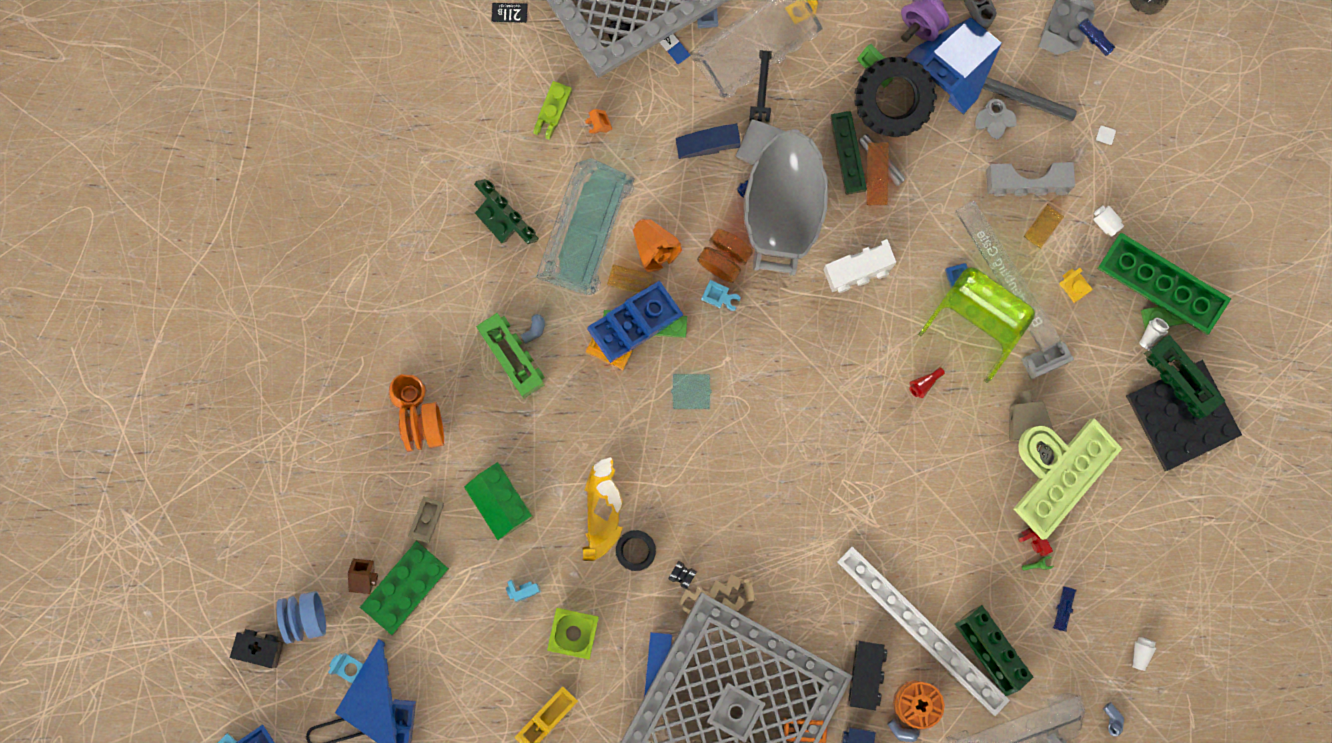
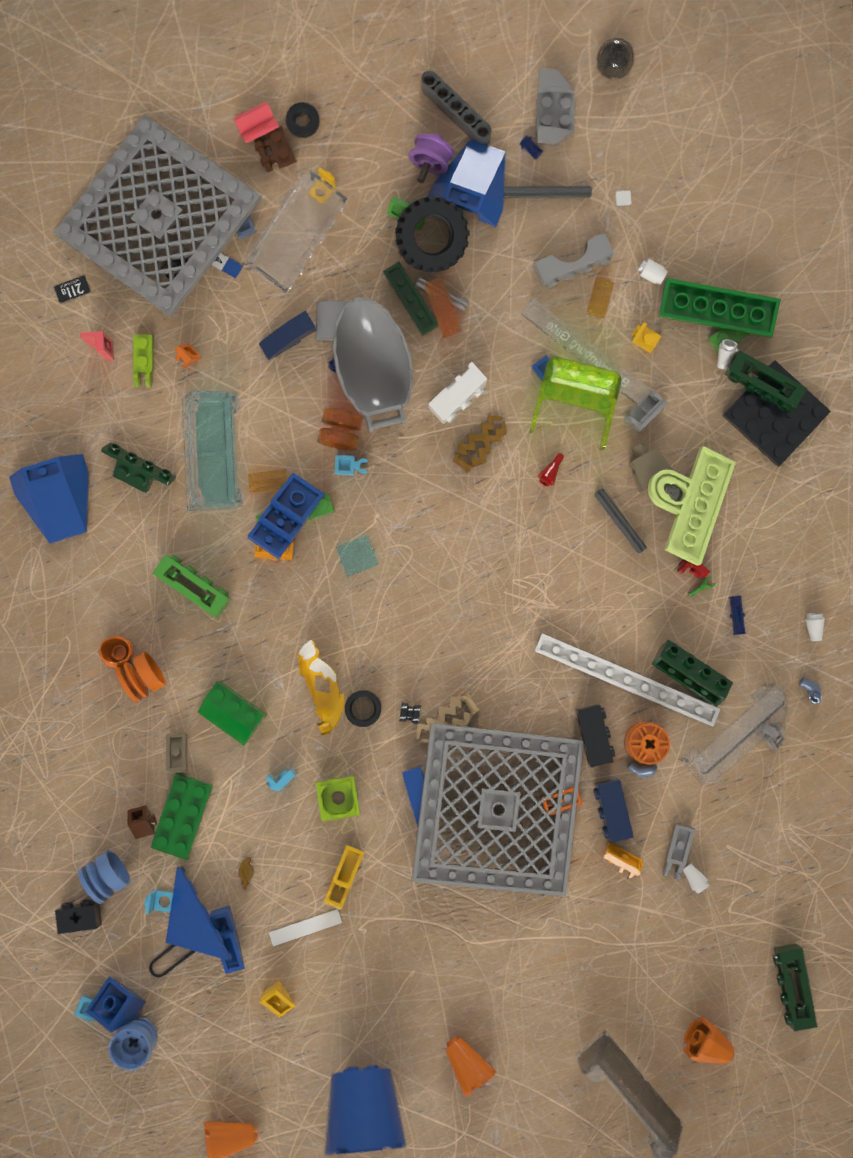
camera: 20 degrees left, 5 degrees up
(409, 210) = (55, 495): none -> blue wedge
(446, 673) = (245, 872): none -> pearl gold piece
(518, 74) = (103, 343): none -> coral panel
(536, 330) = (205, 555): sand blue arm -> none
(655, 245) = (277, 443): orange cone -> none
(760, 108) = (307, 242): black hinge -> none
(870, 322) = (484, 437): none -> pearl gold piece
(978, 462) = (620, 521): none -> dark grey axle
(994, 121) = (524, 223): light grey plate -> none
(1029, 48) = (527, 144): none -> clear blue pin
(1096, 37) = (583, 115): clear blue pin -> none

